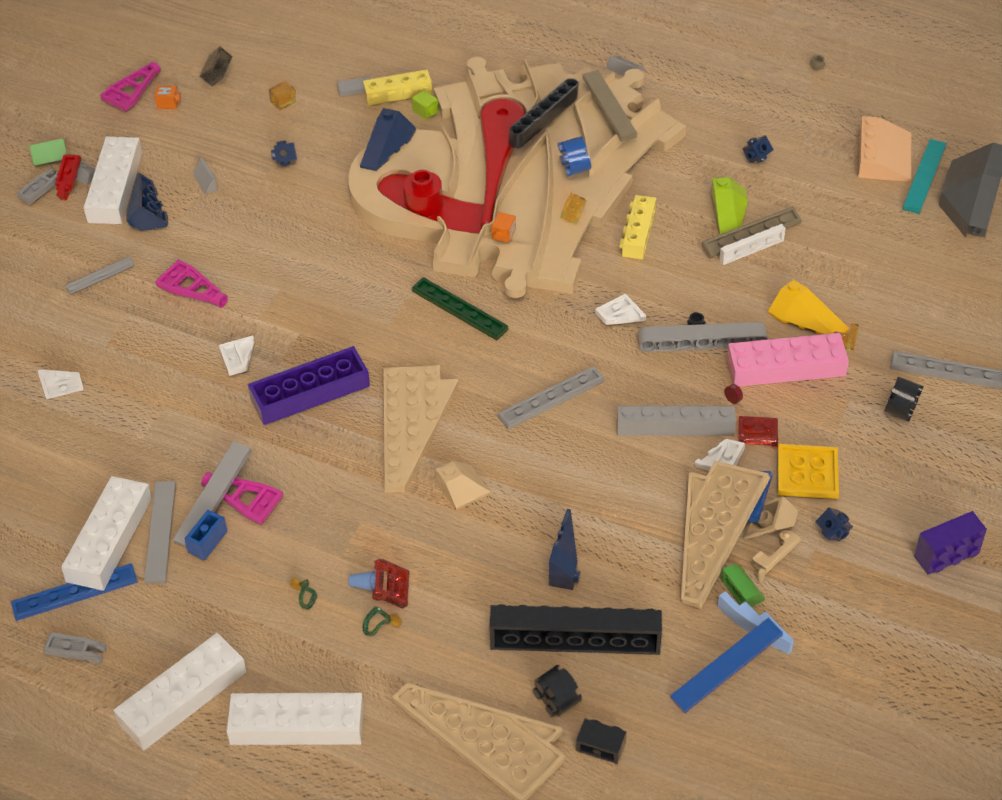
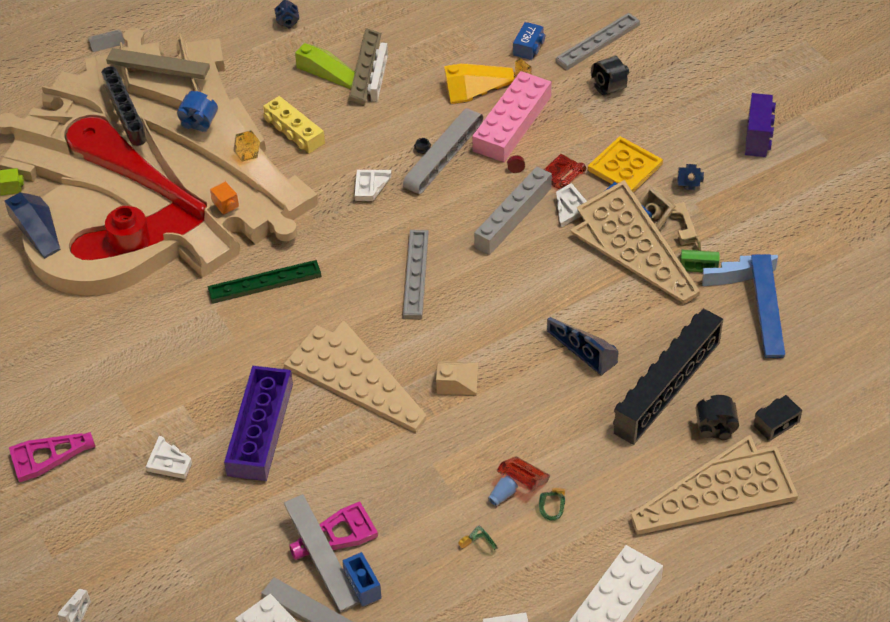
camera: 55 degrees left, 0 degrees up
(893, 320) = (528, 40): none -> blue brick

